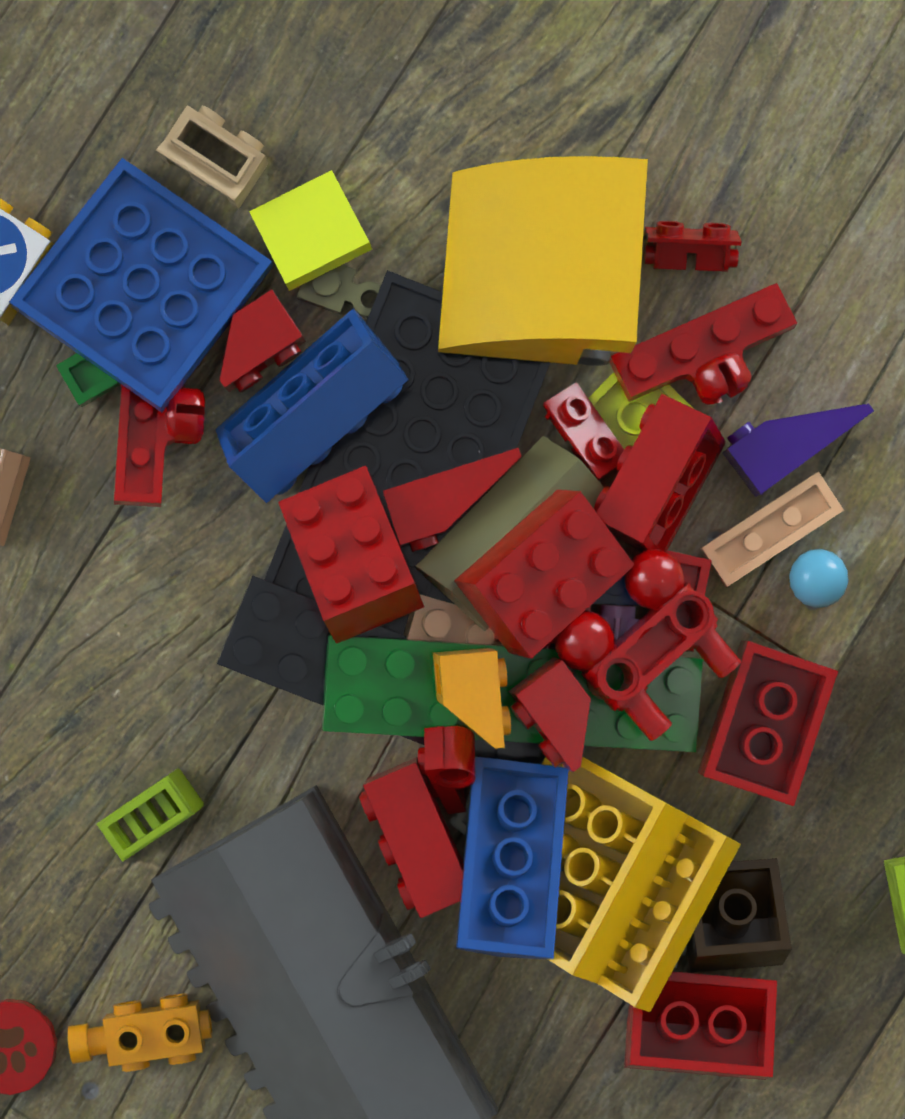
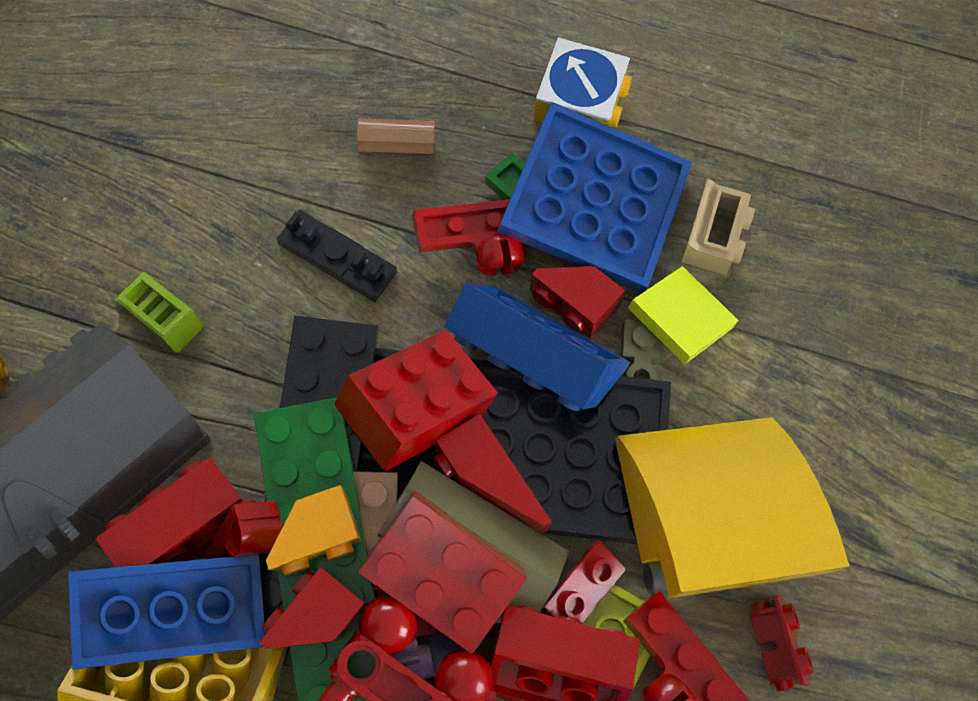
camera: 65 degrees right, 20 degrees down
(130, 600) = (336, 255): none -> black plate

